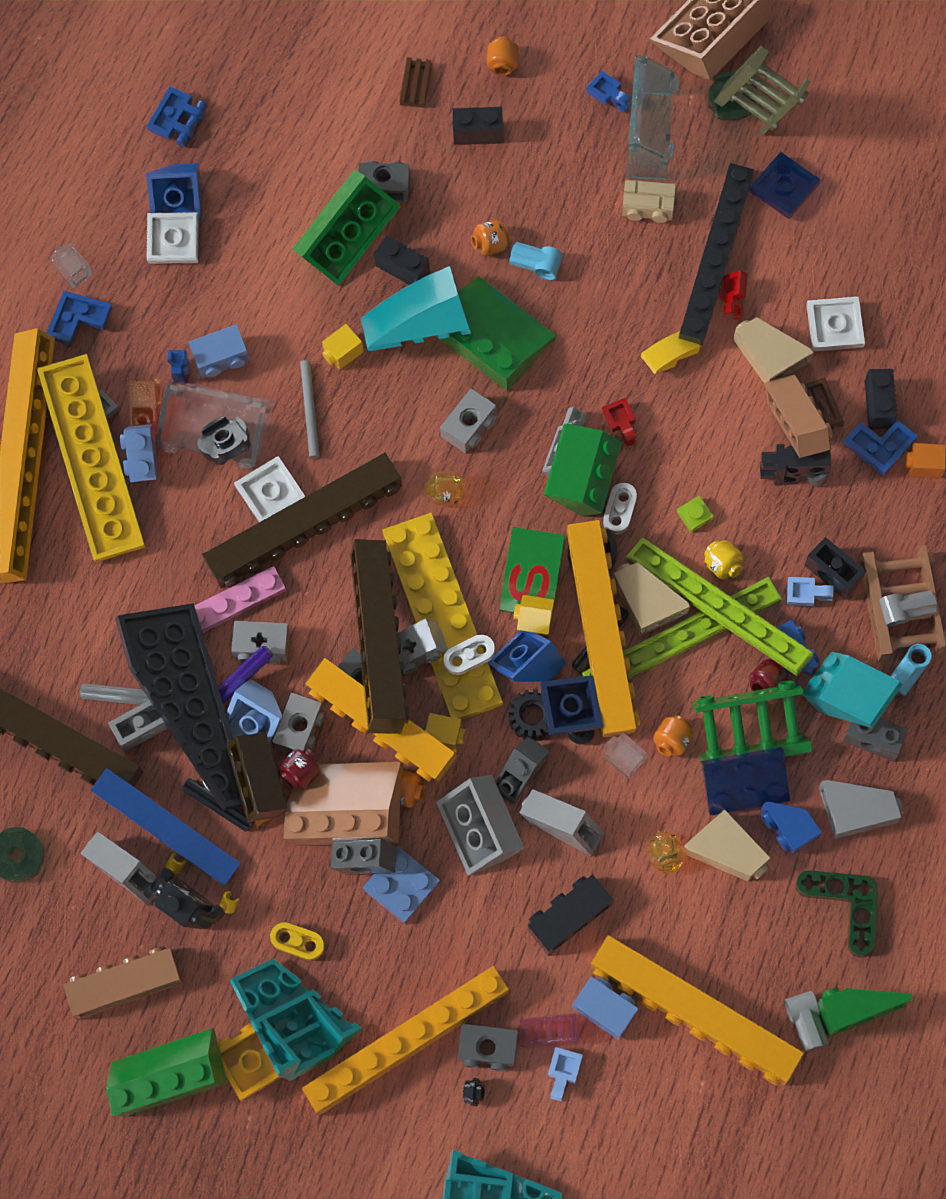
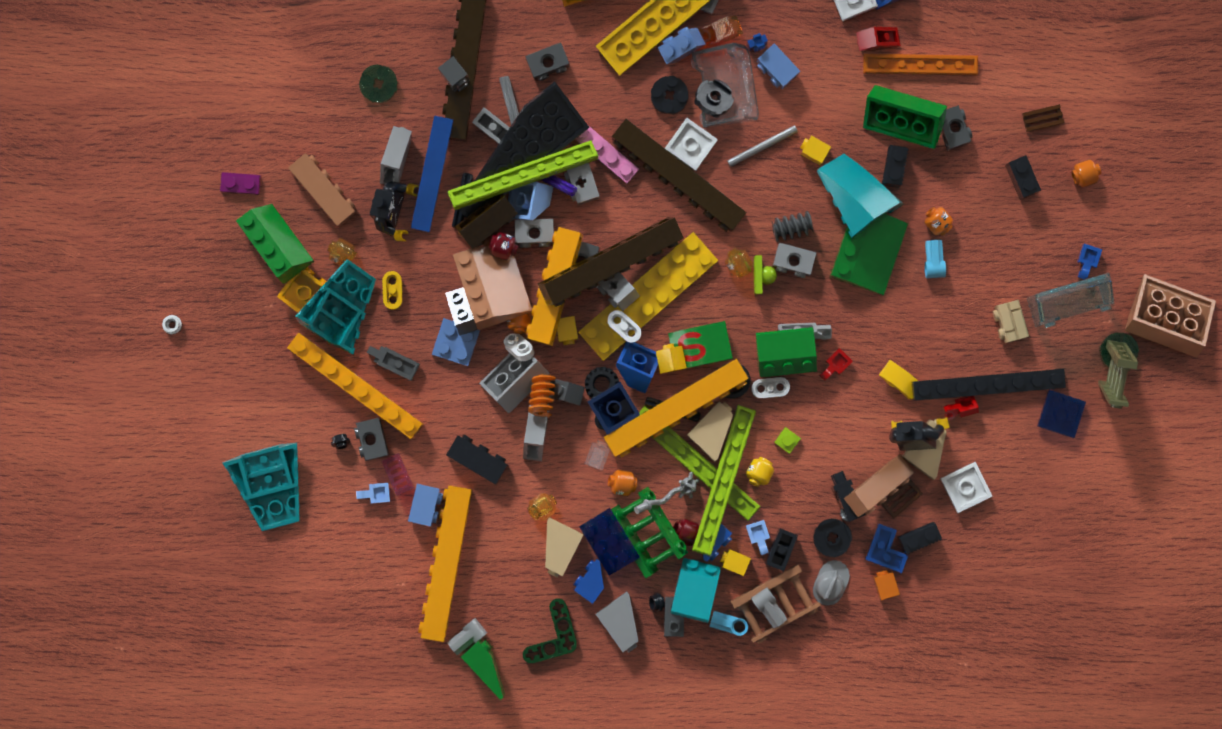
camera: 65 degrees right, 15 degrees up
(48, 741) = (454, 74): none -> dark grey brick
(65, 1094) = (240, 183): none -> magenta plate
(79, 614) = (555, 53): none -> dark grey brick
(196, 481) = (670, 84): none -> black plate
(216, 990) = (340, 251): none -> clear yellow head
(218, 708) = (522, 175): none -> lime tile
(236, 228) = (878, 38): none -> red slope
(289, 194) = (920, 64): none -> orange tile
(394, 976) = (394, 362): none -> dark grey hinge
(424, 405) = (792, 226): none -> dark grey piece
(441, 800) = (518, 347): none -> white plate
(472, 467) = (765, 275): none -> lime tile
(517, 791) = (540, 395): none -> orange piece
(710, 657) = (686, 487): none -> light grey piece
(748, 350) = (917, 434): none -> black torso
(830, 632) = (735, 562): none -> yellow brick
(837, 518) = (822, 532): none -> black plate
(848, 751) = (656, 602): none -> black plate
(899, 528) = (831, 582): none -> light grey piece

